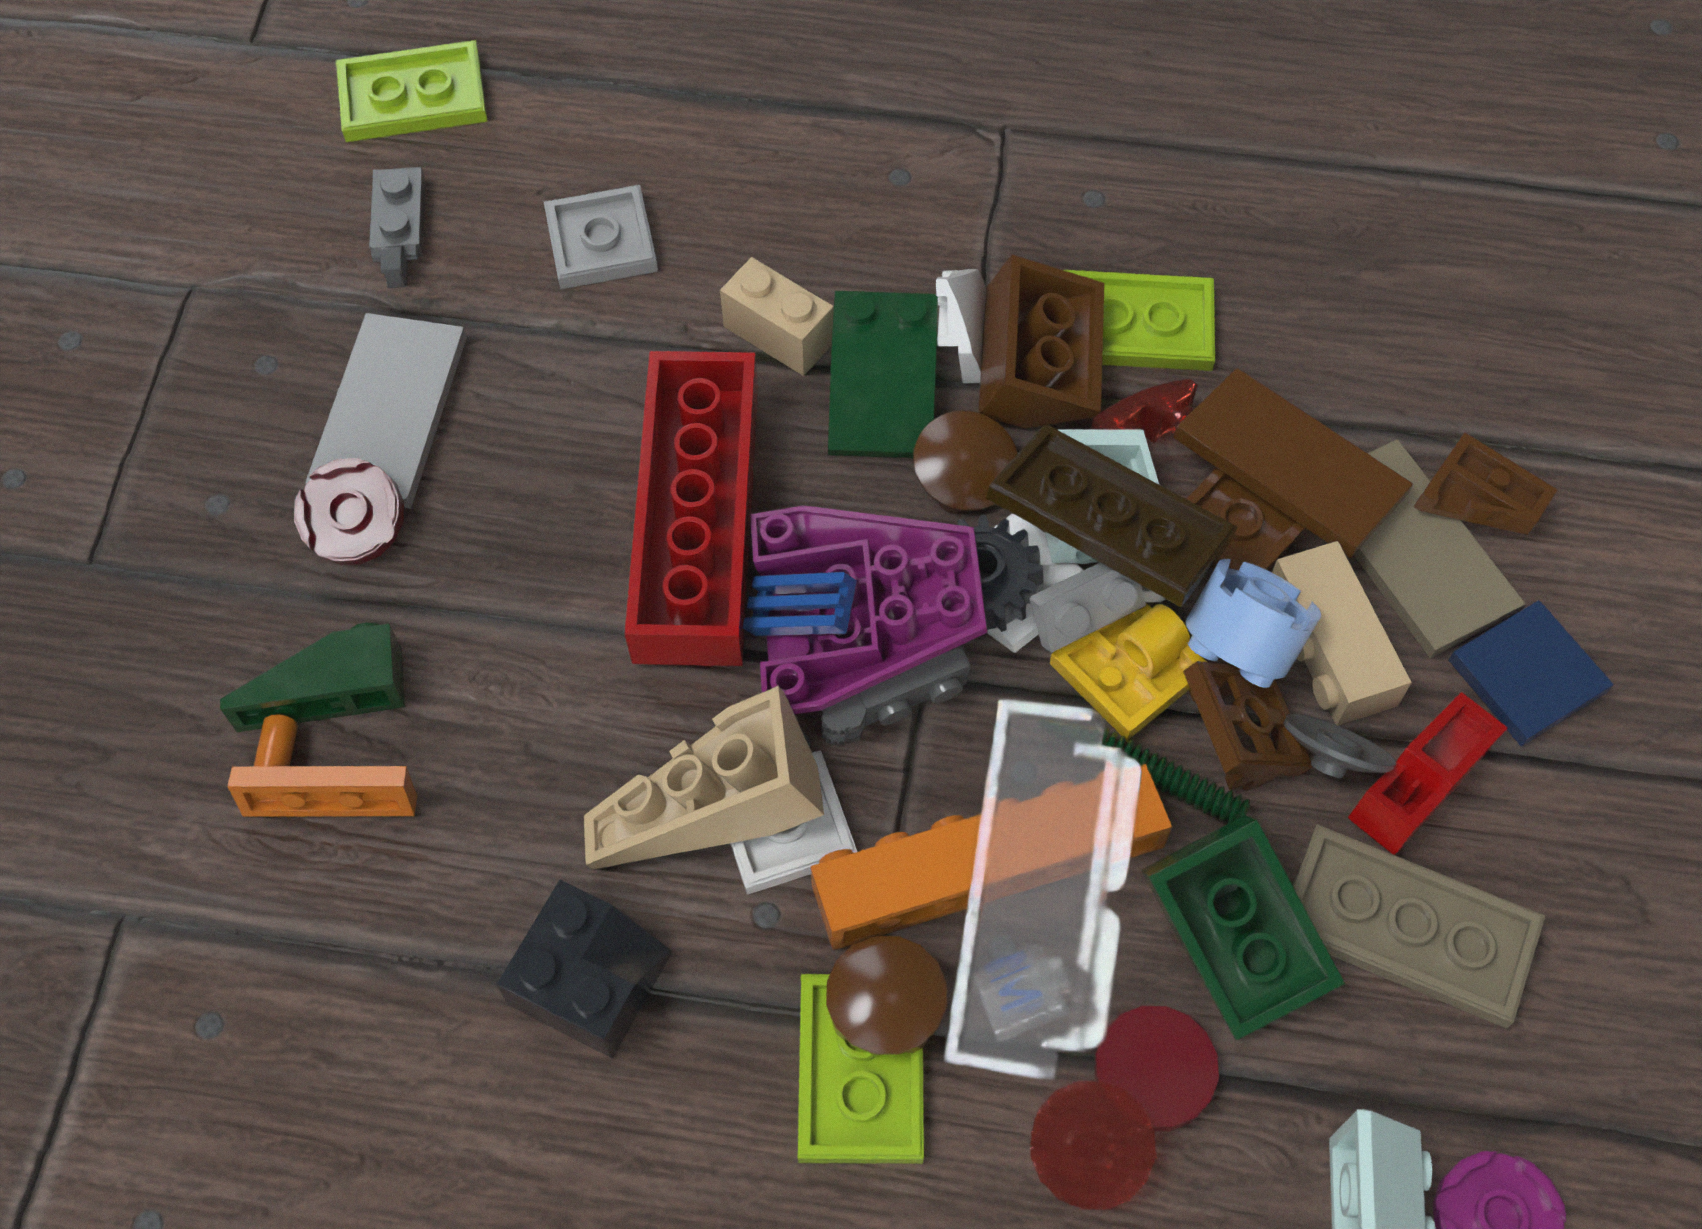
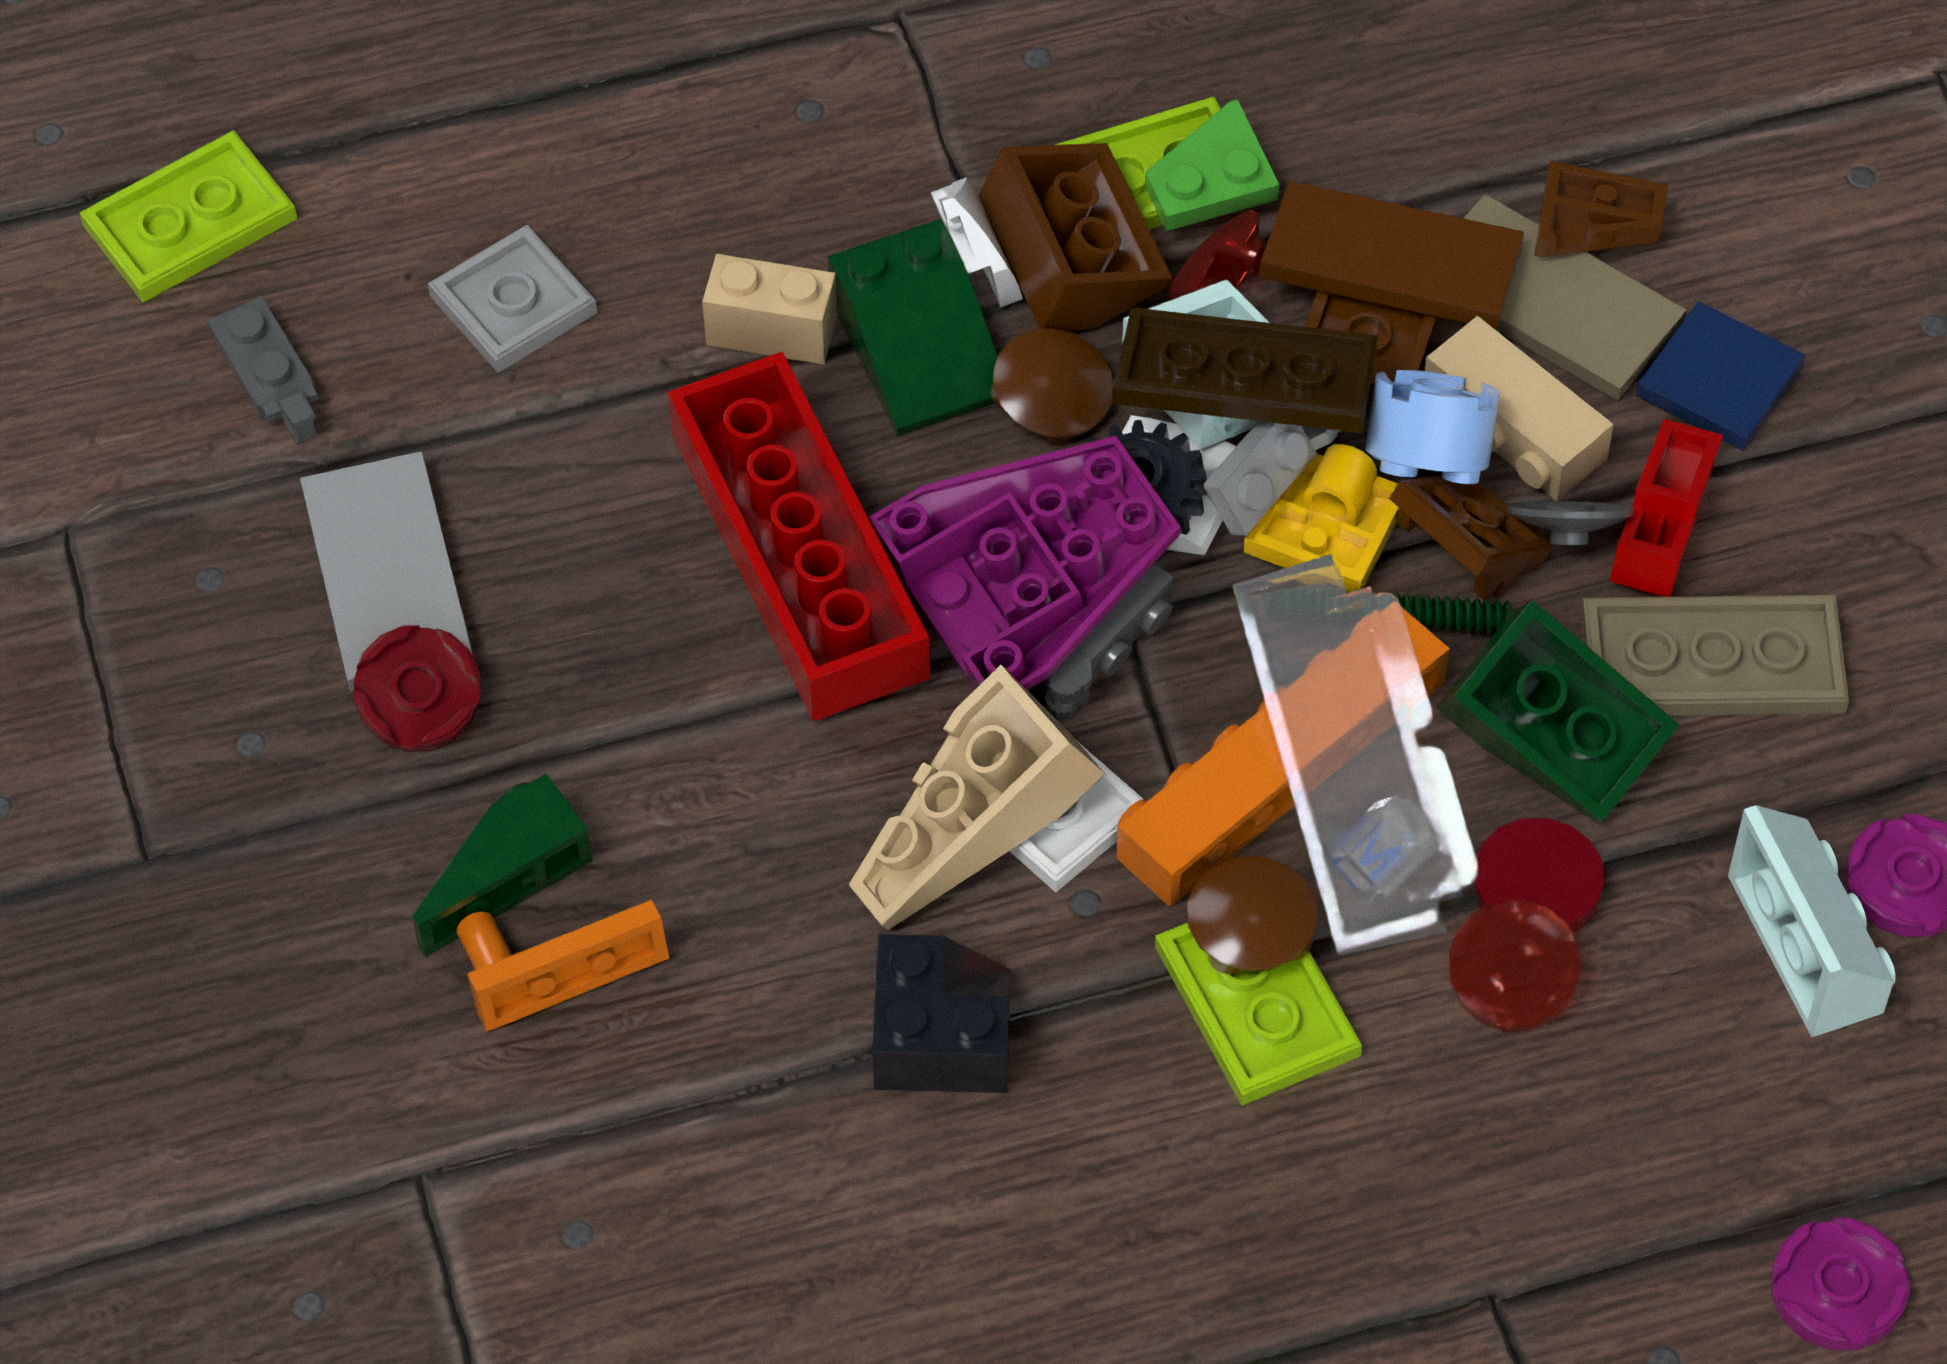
camera: 25 degrees left, 5 degrees down
(842, 601) = (963, 563): blue tile -> none
(1179, 337) = (1212, 172): none -> bright green wing

